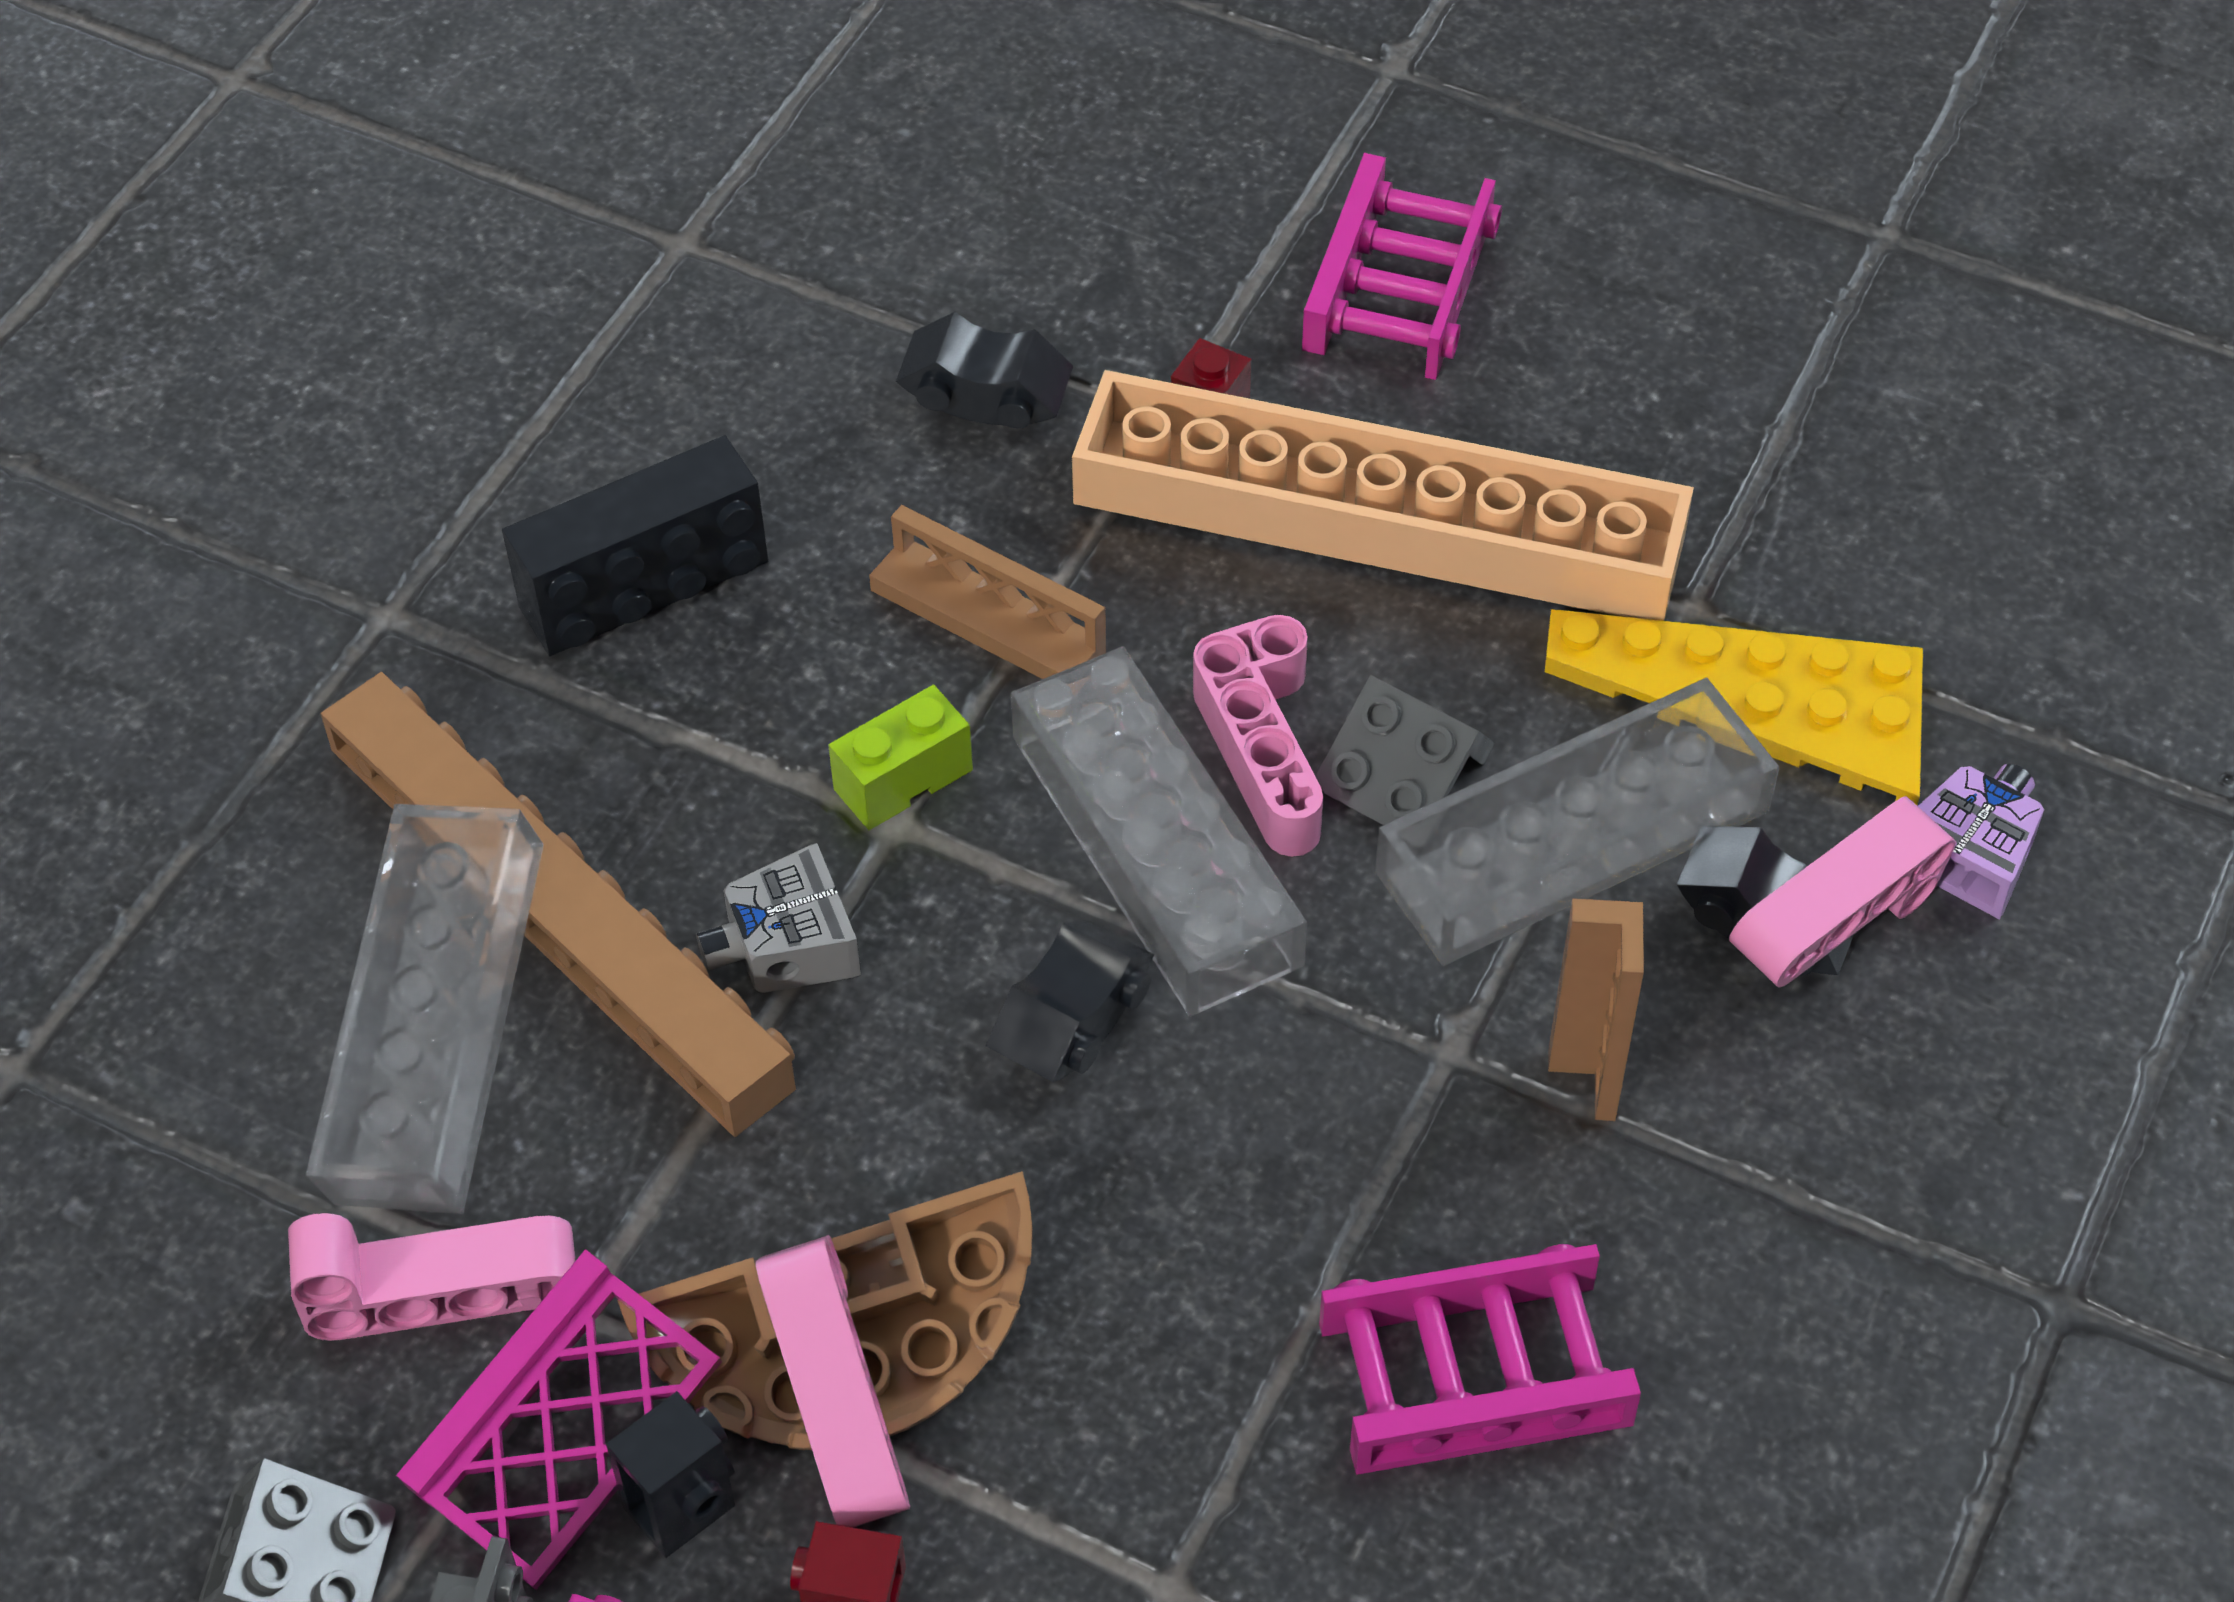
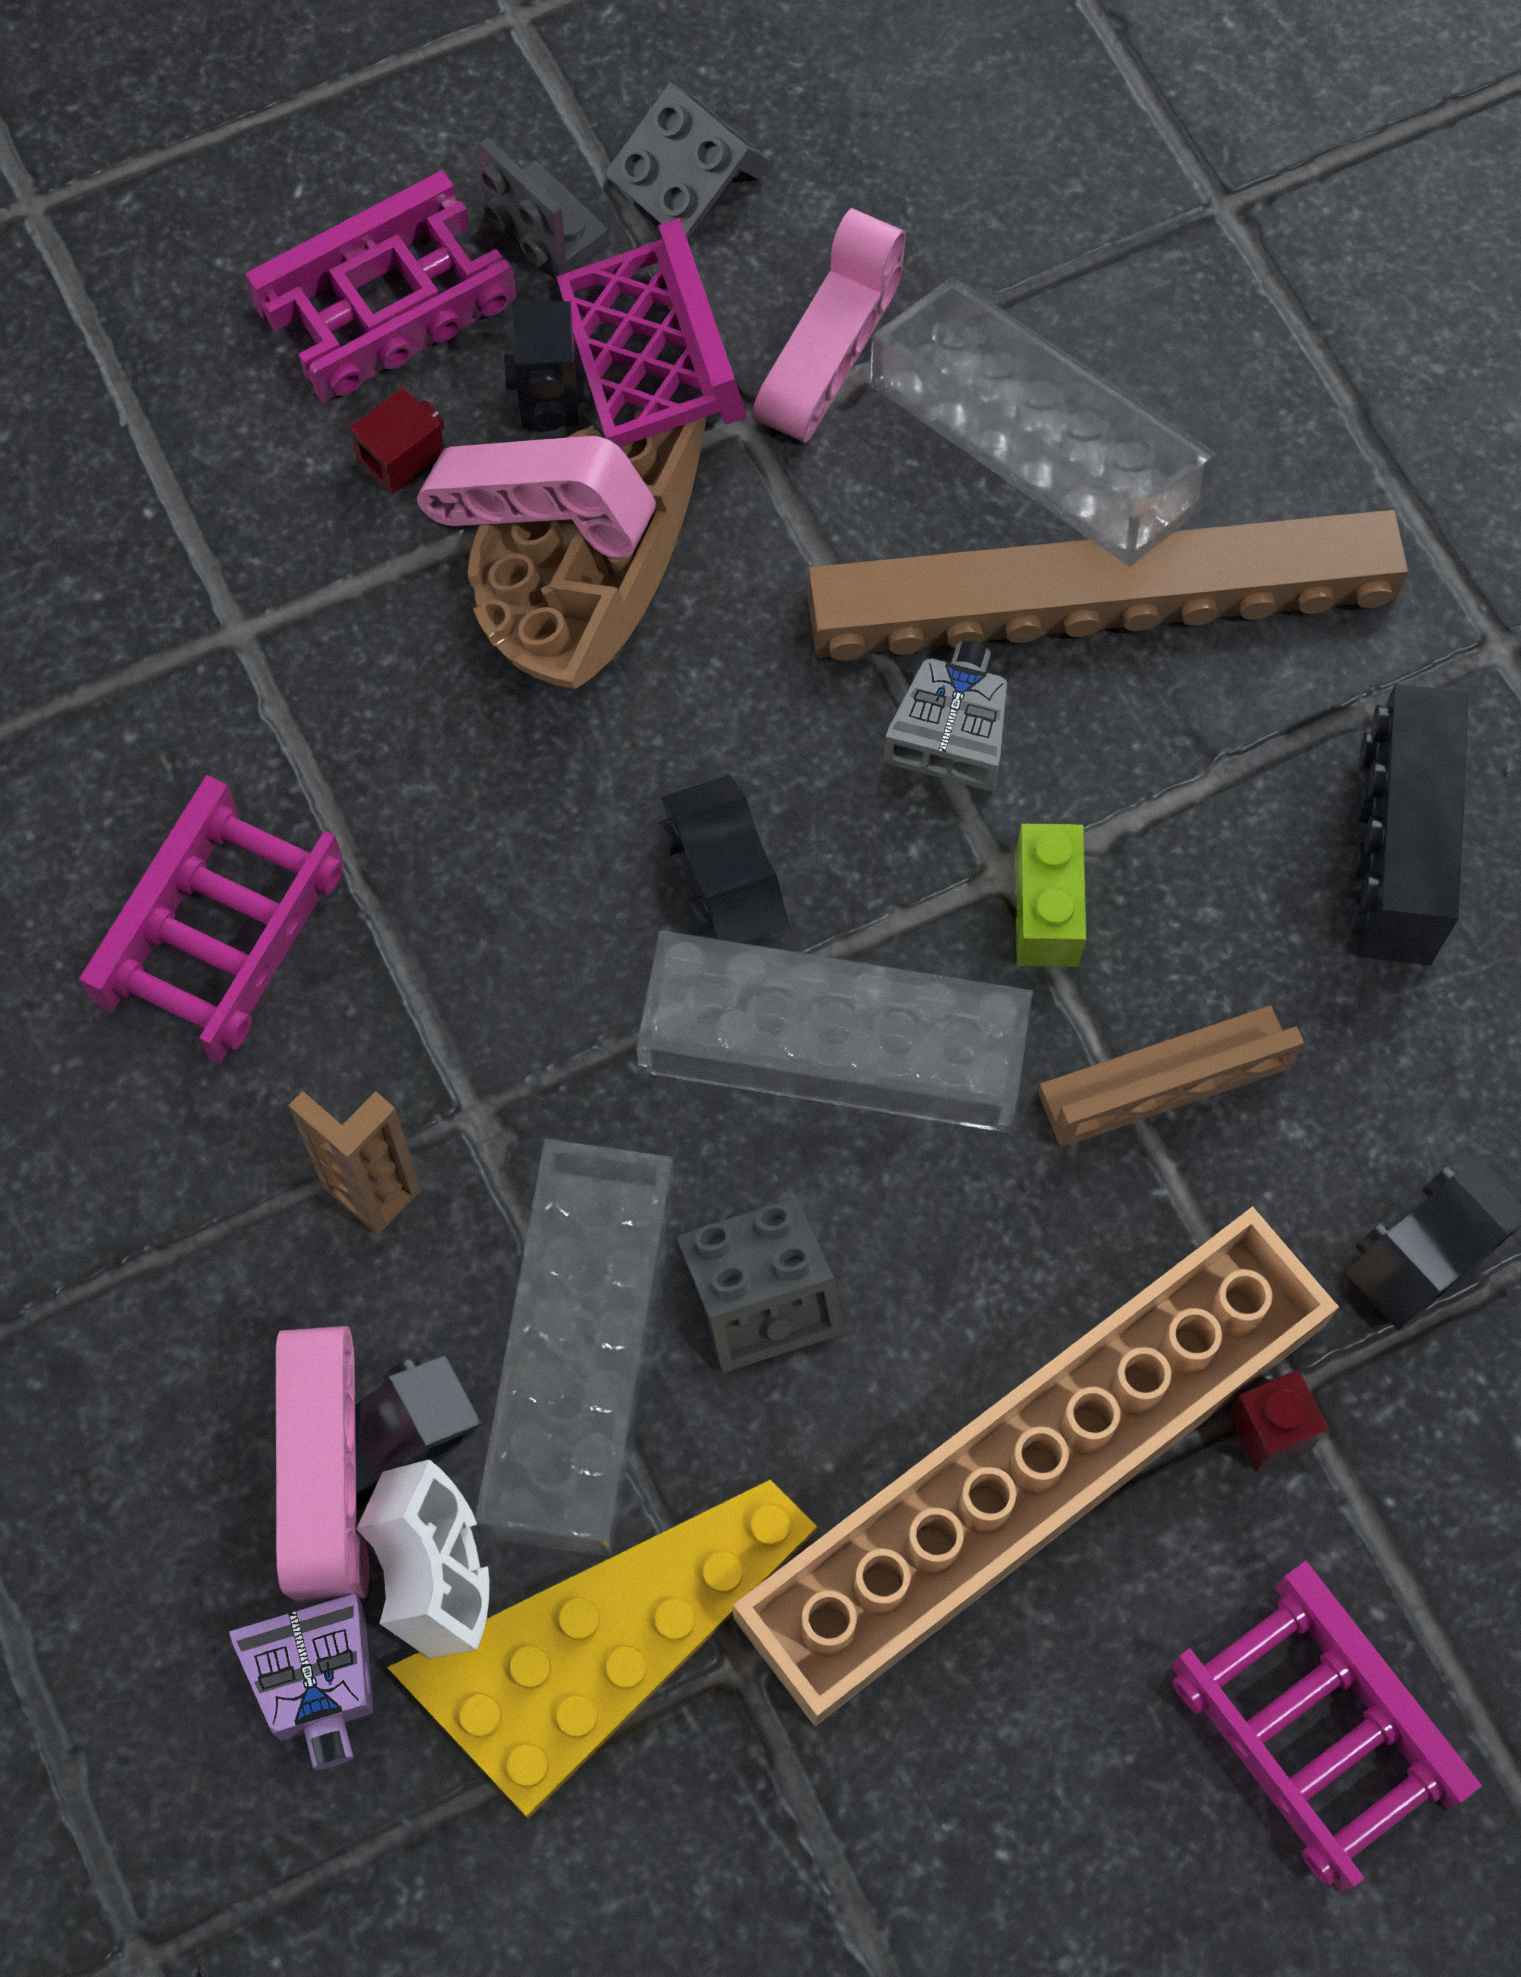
camera: 125 degrees right, 15 degrees up
(1236, 690) = (857, 1188): bright pink beam -> none
(1835, 782) = (428, 1560): none -> white brick

